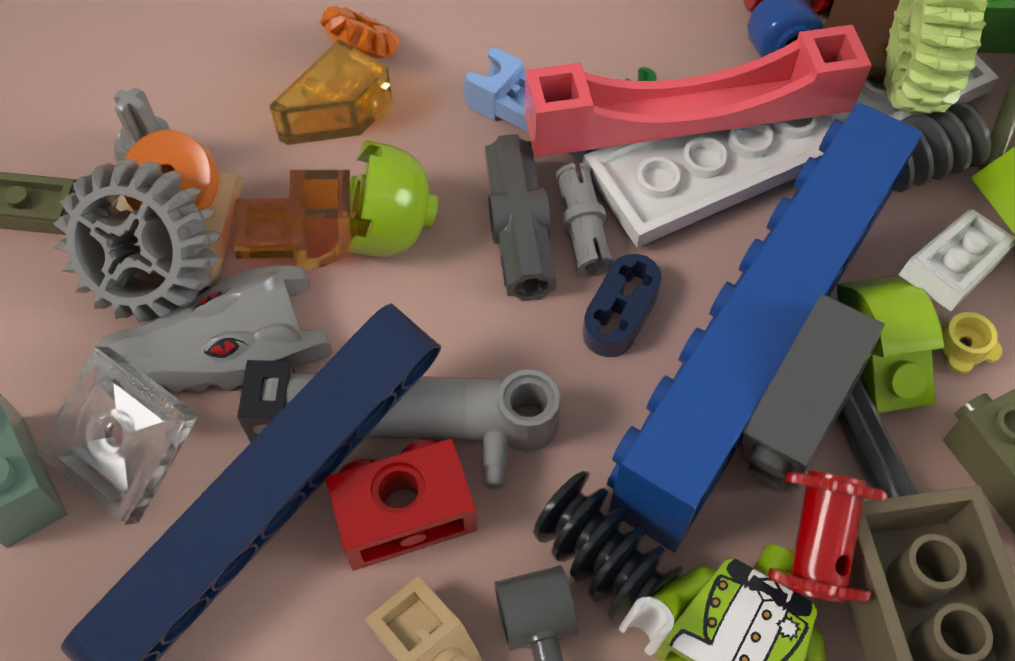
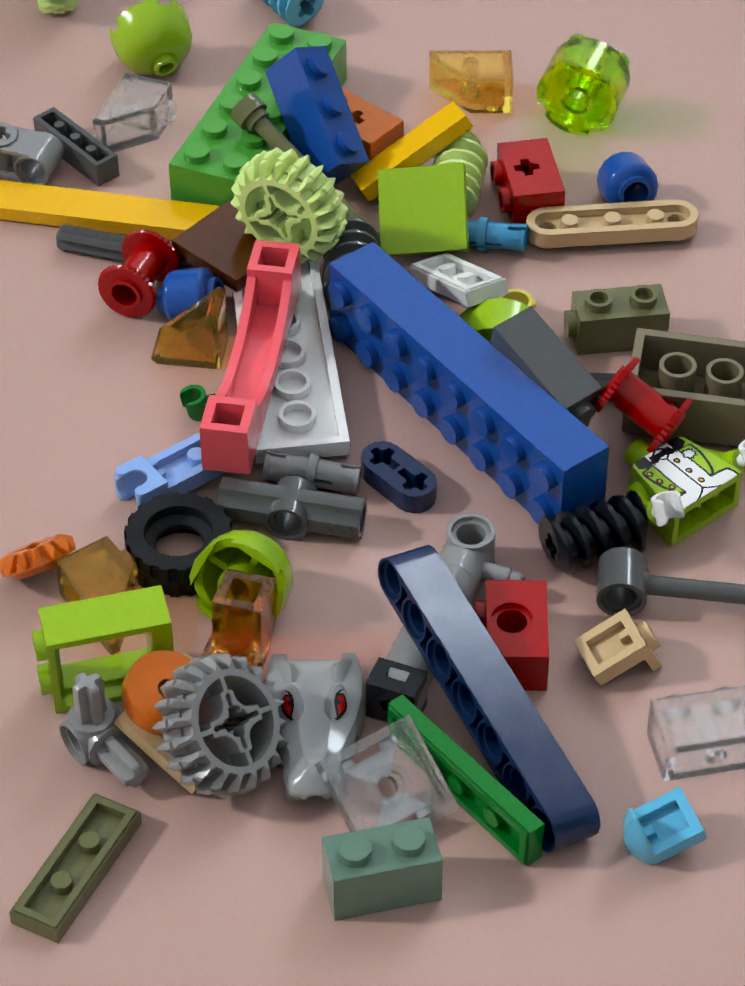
camera: 70 degrees left, 15 degrees down
(153, 510) = (477, 789): none -> green tile
(231, 113) = (97, 621): none -> lime window
(439, 104) = (168, 516): none -> black tyre
(732, 47) = (196, 335): none -> clear yellow slope

